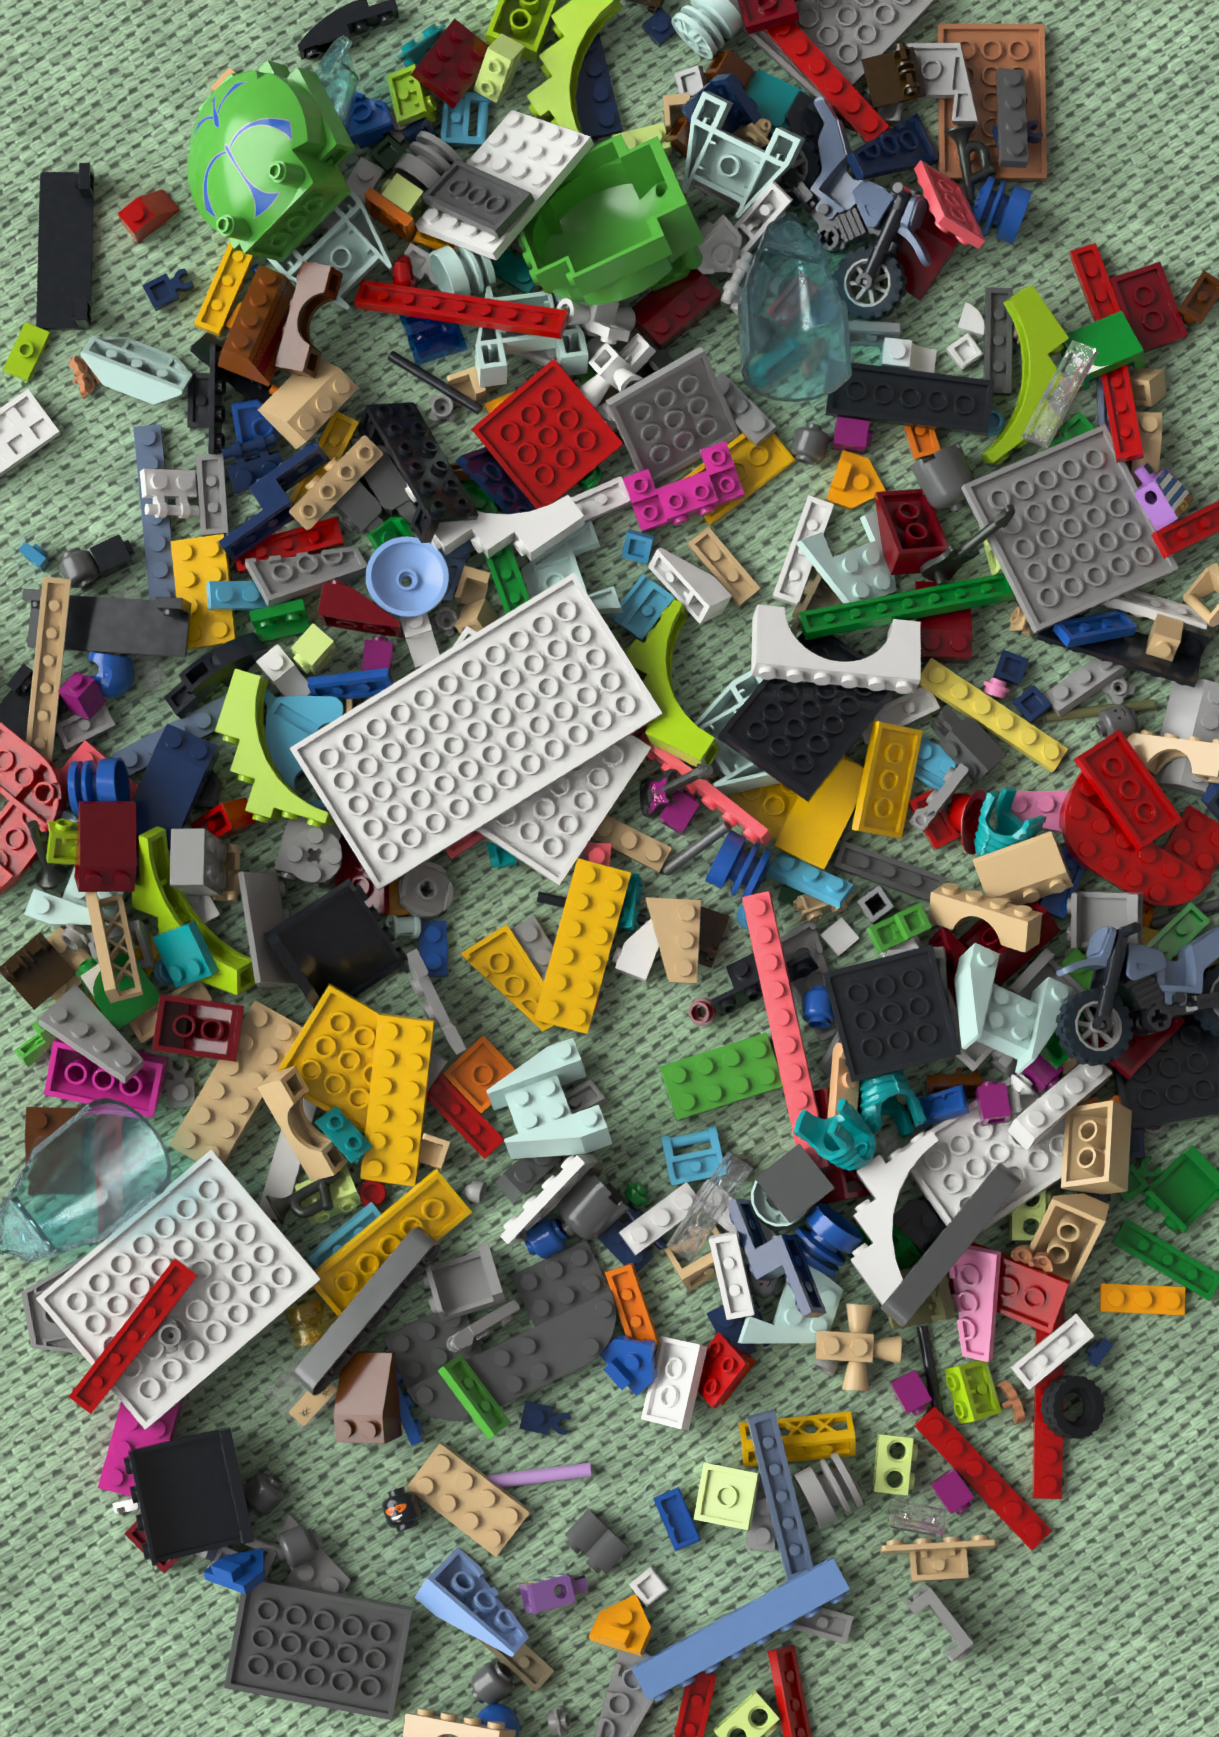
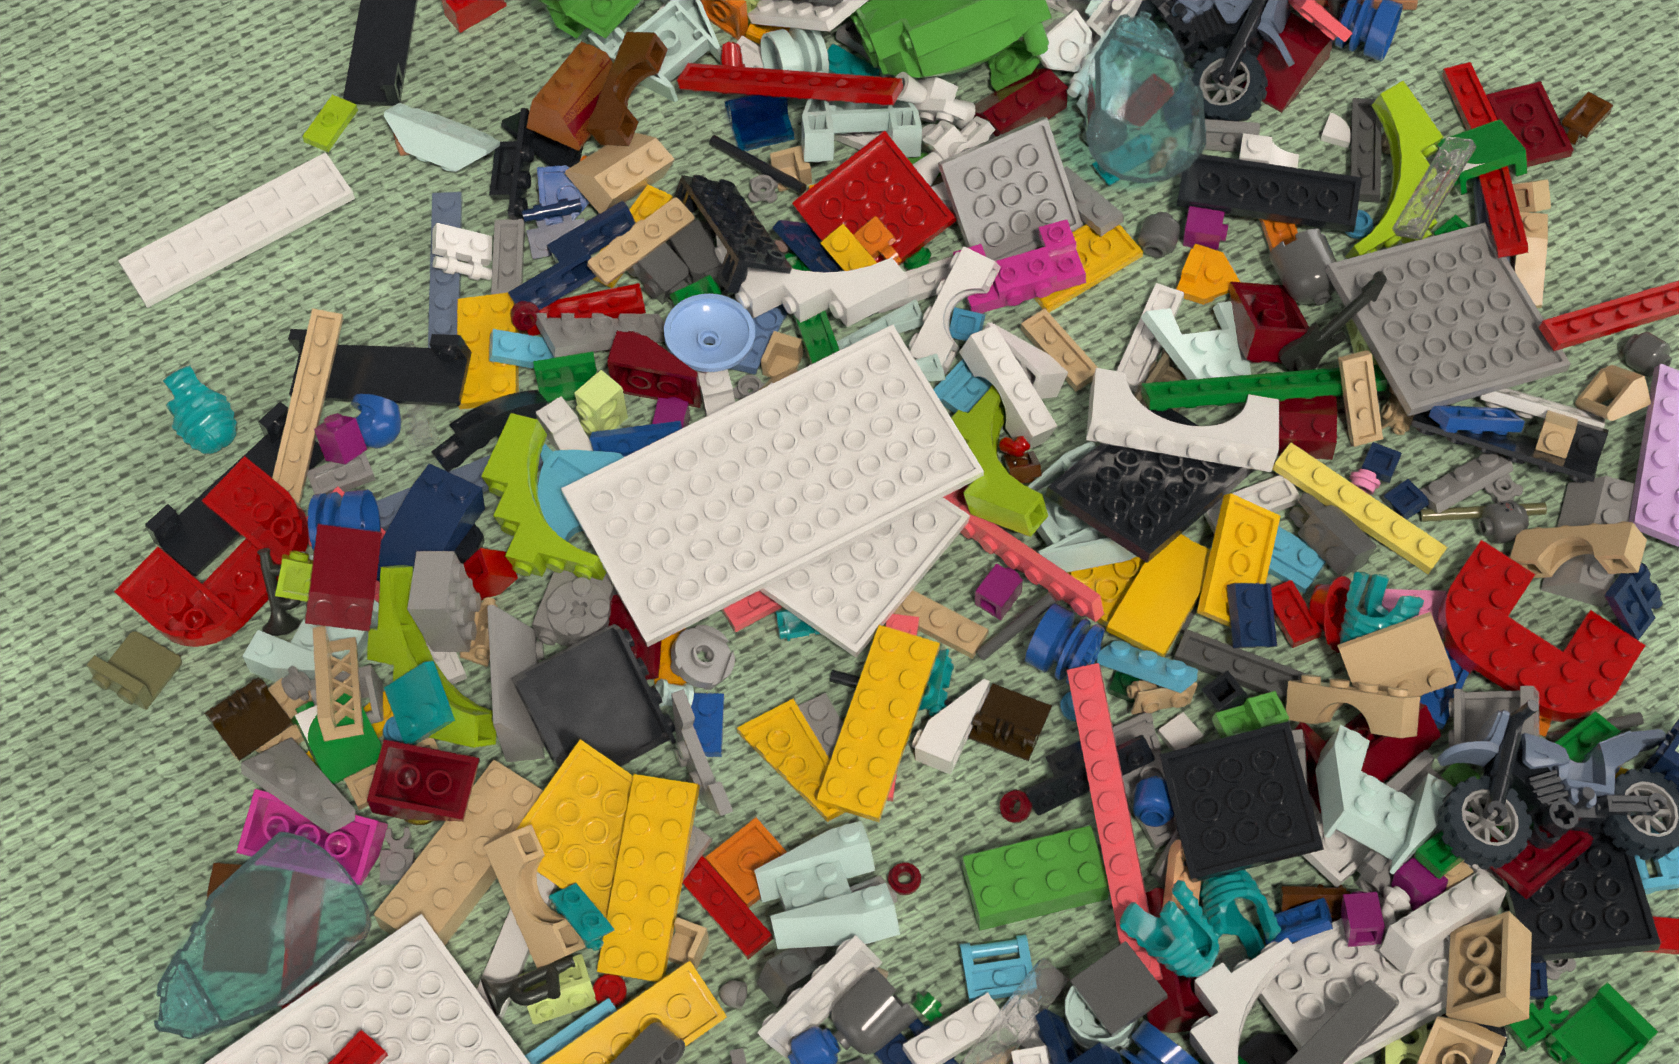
camera: 10 degrees right, 20 degrees down
(35, 555) = (305, 303): dark azure plate -> none
(36, 1046) = (235, 805): bright green slope -> none
(79, 567) = (358, 320): dark grey head -> none
(85, 381) = (386, 149): nougat piece -> none
(113, 555) = (393, 310): black brick -> none
(164, 291) = (481, 72): dark blue plate -> none
(223, 291) = (546, 63): yellow plate -> none
(235, 561) = (524, 315): none -> dark red plate
(529, 482) = (847, 250): none -> yellow plate
(552, 468) = (877, 240): none -> orange plate
(611, 1090) = (904, 869): none -> dark red plate
(640, 508) = (969, 276): none -> white arch
(657, 792) = (974, 566): pearl dark grey piece -> none
(677, 934) = (990, 715): tan wing -> none
(687, 674) = (1014, 448): none -> red arm
(694, 637) = (991, 358): none -> white arch
(694, 691) = (1024, 467): none -> reddish brown plate
(896, 832) = (1251, 615): none -> dark blue plate
(939, 798) = (1299, 586): light grey hinge -> none
(964, 352) = (1329, 158): white tile -> none
(992, 612) = (1360, 398): none -> tan plate
(1128, 790) = (1519, 580): red plate -> none
(1161, 495) = (1556, 297): medium lavender torso -> none

